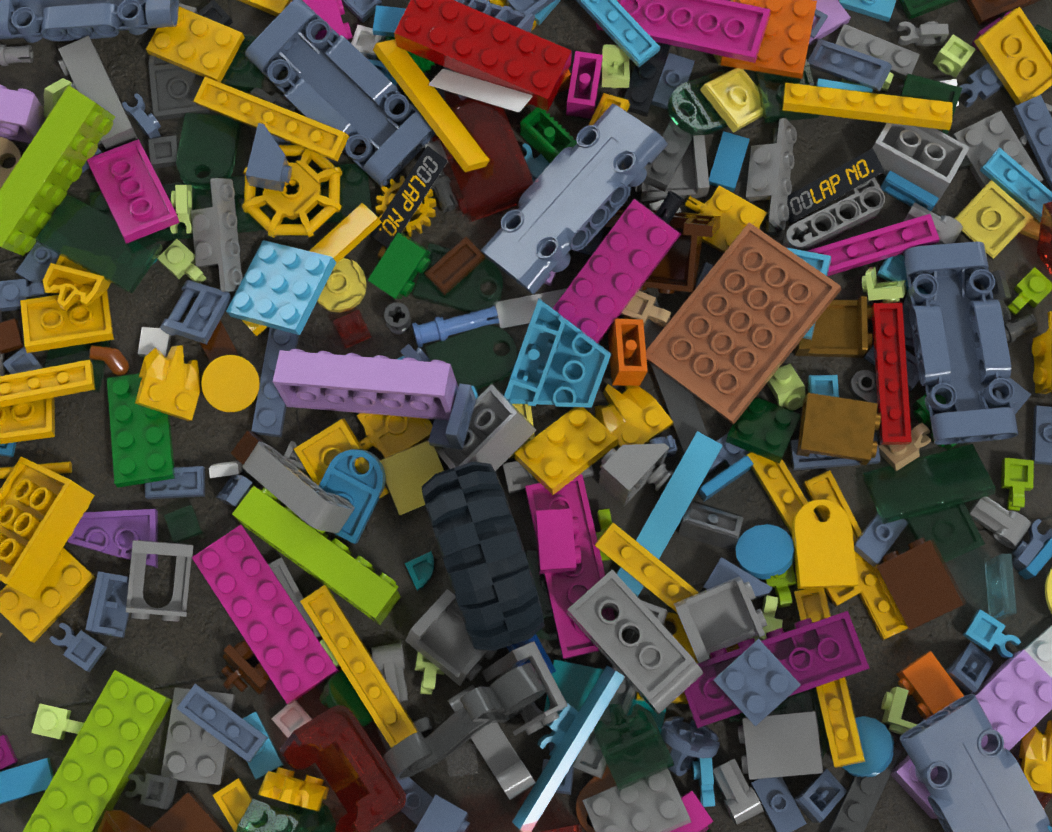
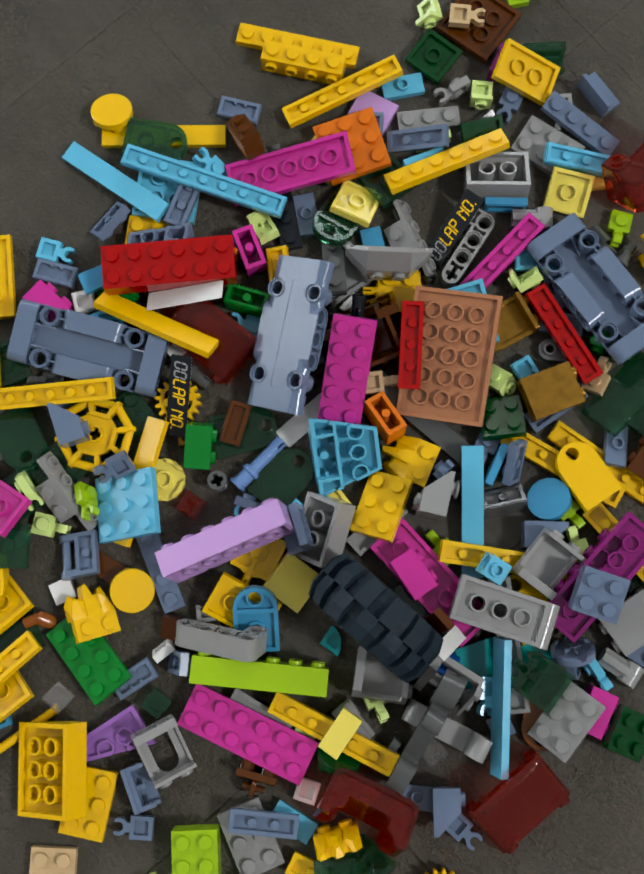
camera: 25 degrees left, 5 degrees up
(79, 455) = (58, 697): none -> clear tile
(241, 253) = (87, 498): none -> lime plate
(296, 235) = (116, 466): none -> sand blue plate
(367, 669) = (340, 733): none -> light yellow tile
(552, 642) = (451, 642): none -> white sticker
(553, 610) = (439, 621): none -> reddish brown tile
(651, 586) = (493, 568): none -> medium azure brick
(703, 284) = (410, 345): none -> red plate
(734, 179) = (387, 261): none -> light grey wedge
(748, 485) = (515, 457): none -> sand blue plate

